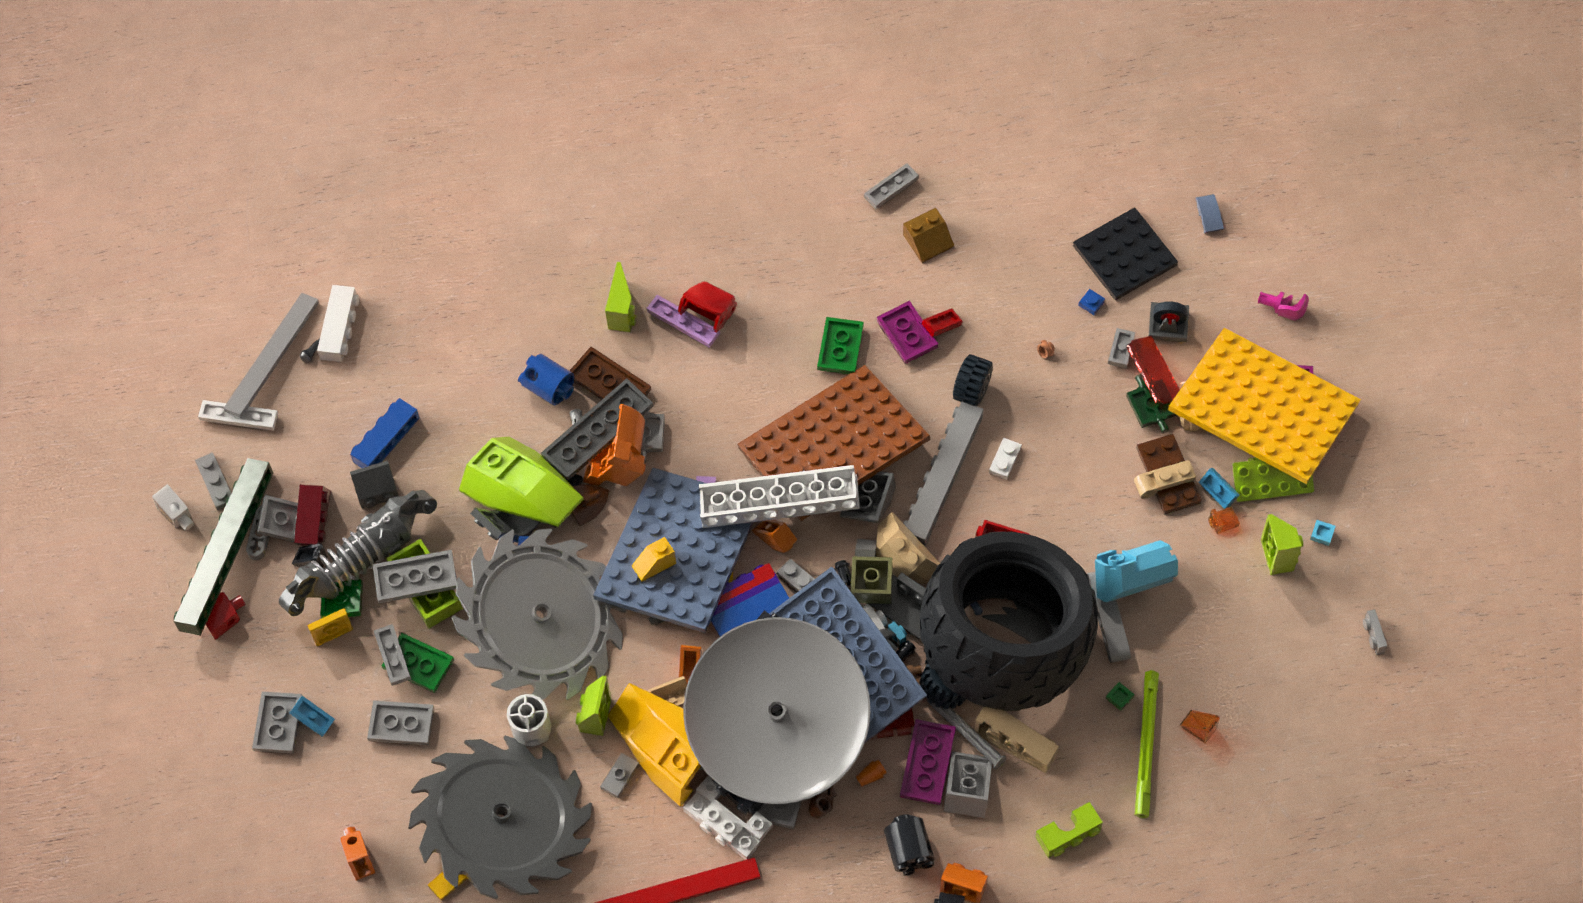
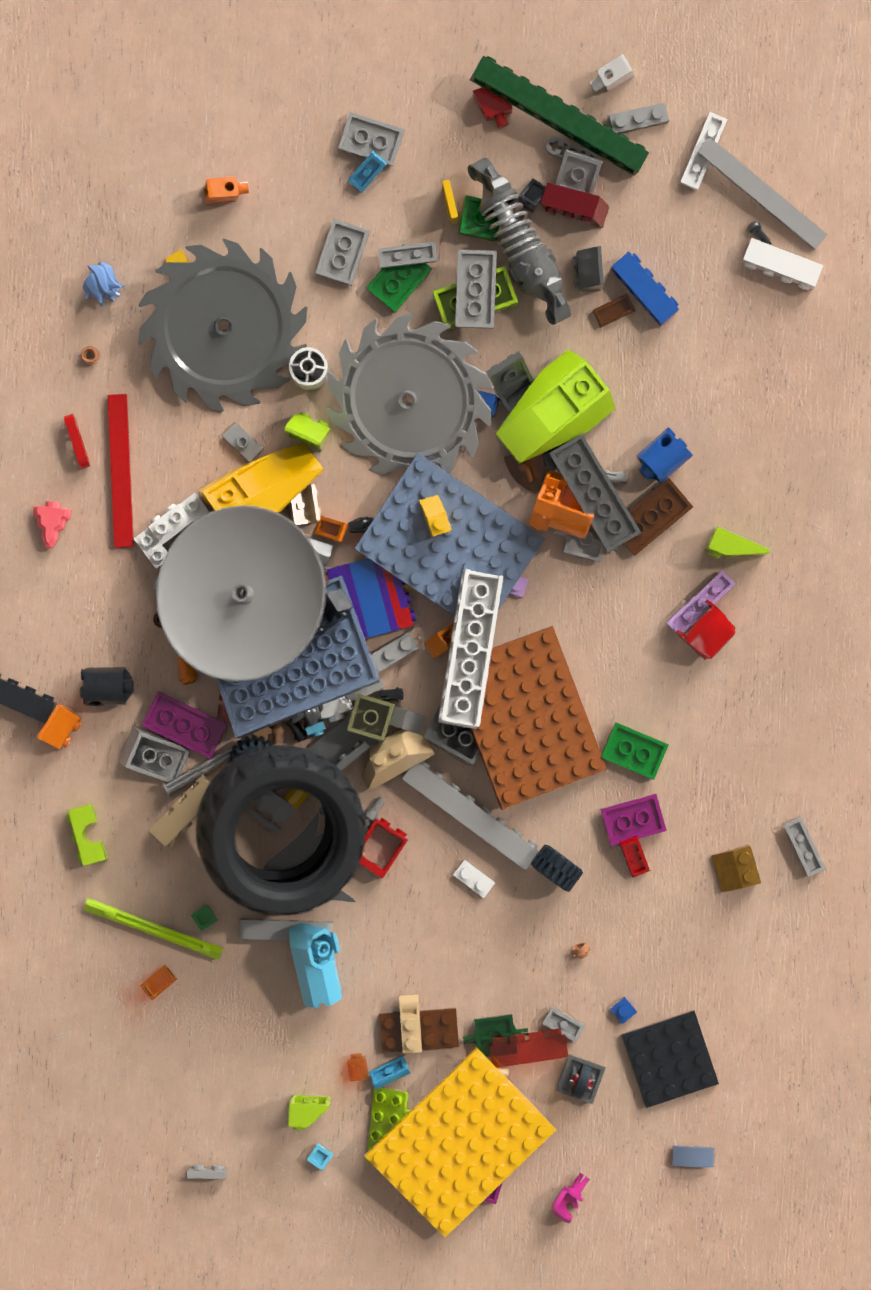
camera: 100 degrees right, 25 degrees up
(412, 460) = (614, 310): none -> reddish brown tile
(677, 636) = (360, 524): none -> black piece

